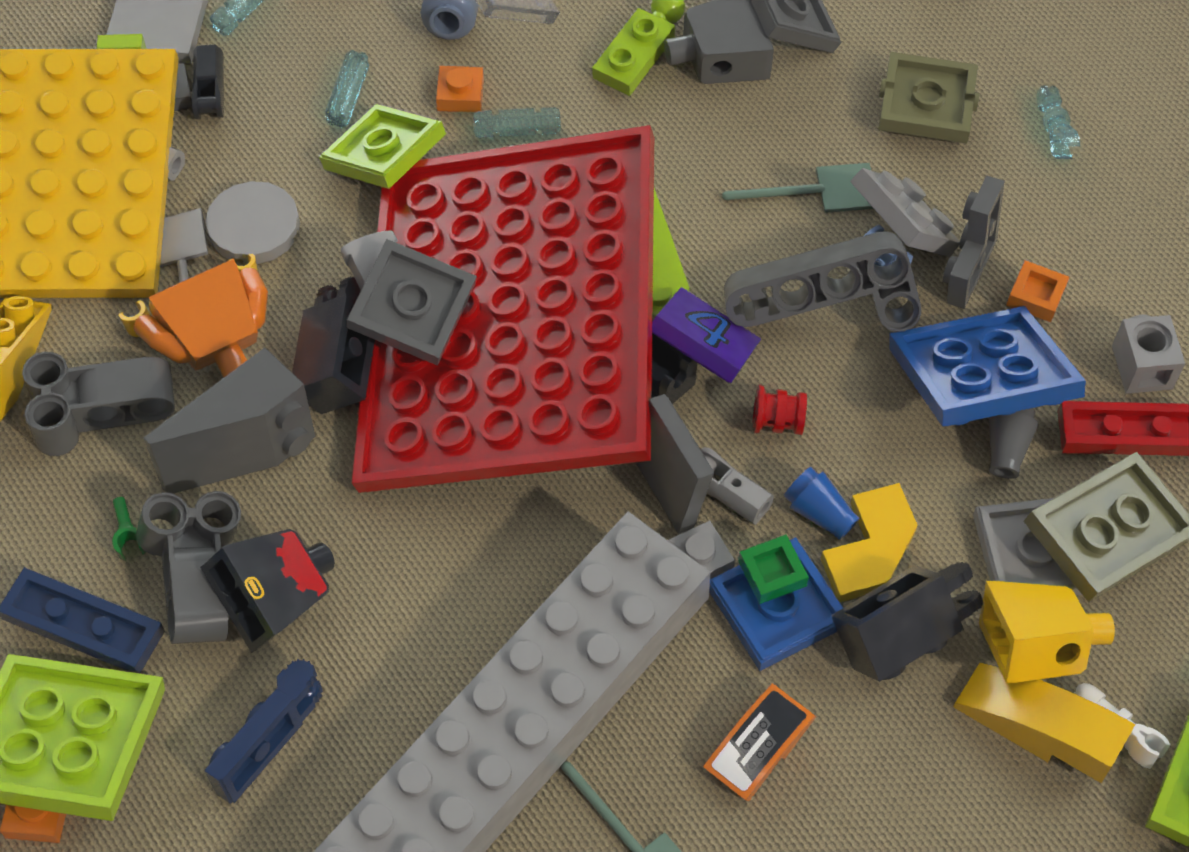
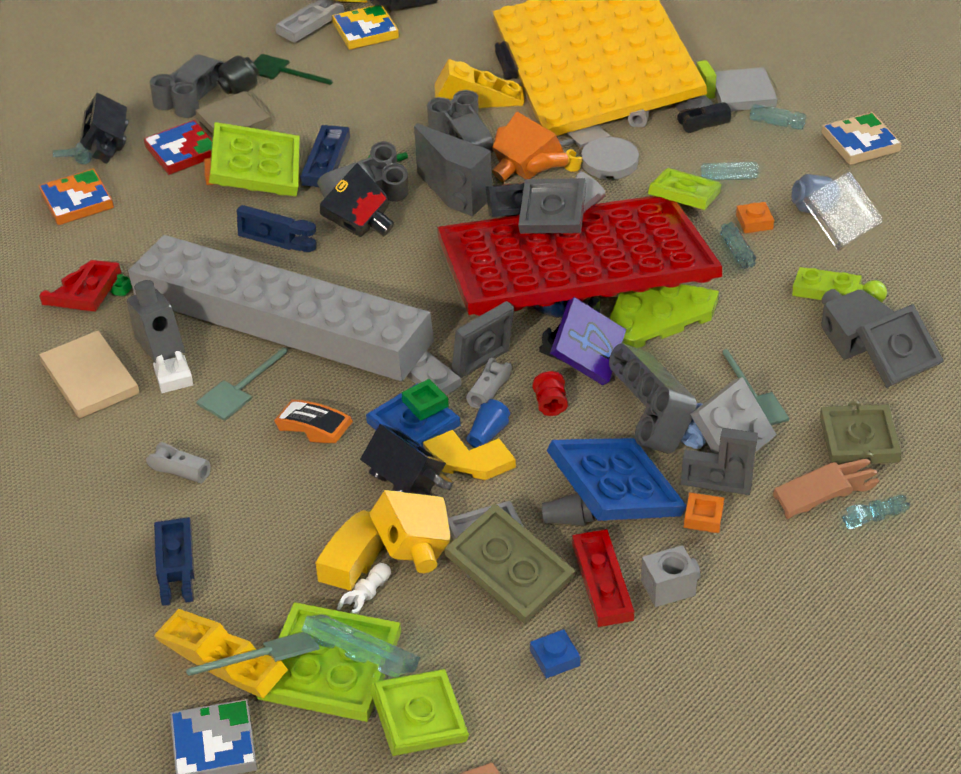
camera: 80 degrees right, 15 degrees down
(1013, 159) = (824, 484): none -> nougat arm

